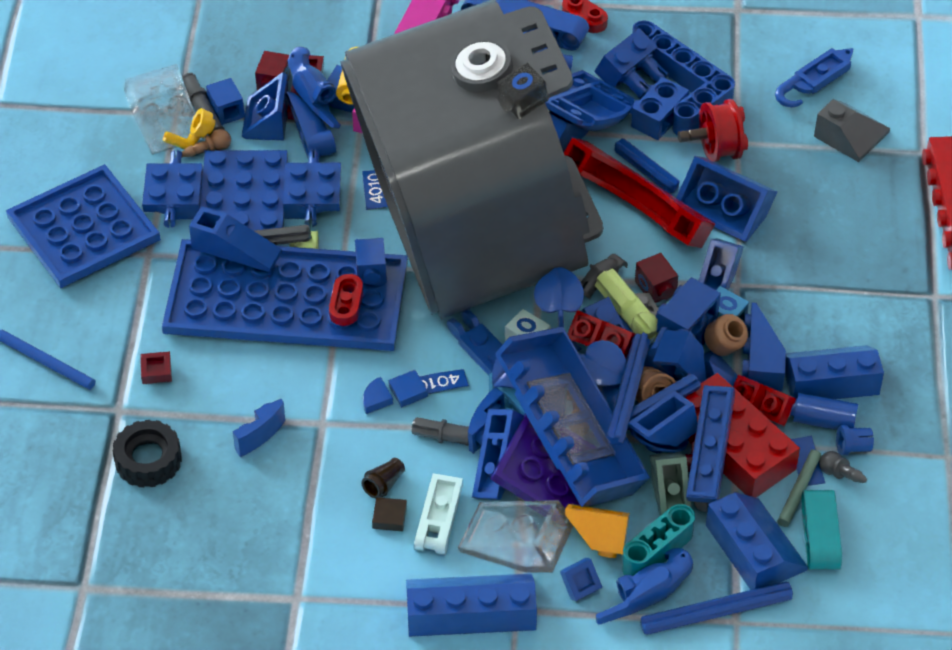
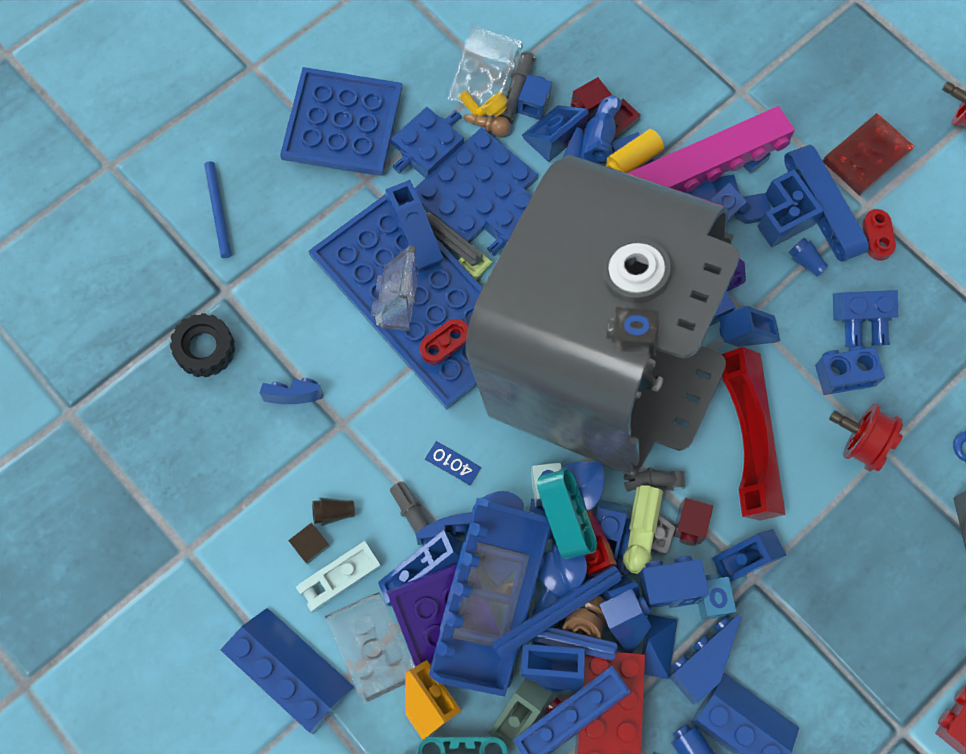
camera: 40 degrees right, 20 degrees up
(156, 367) = (275, 280): dark red plate -> none
(276, 283) = (397, 292): none -> clear slope
(376, 396) = (396, 436): blue tile -> none
(408, 388) = (424, 450): blue tile -> none
(477, 341) = (510, 463): blue hinge -> none
(570, 313) = (566, 514): none -> teal beam
(581, 579) = (377, 728): blue plate -> none
(591, 103) = (791, 316): blue slope -> none
(646, 165) = (789, 412): blue axle -> none
(690, 71) = (901, 359): blue beam -> none
(726, 197) = (819, 496): blue slope -> none
(726, 335) = (689, 624): medium nougat head -> none
(768, 401) = (664, 703): red slope -> none

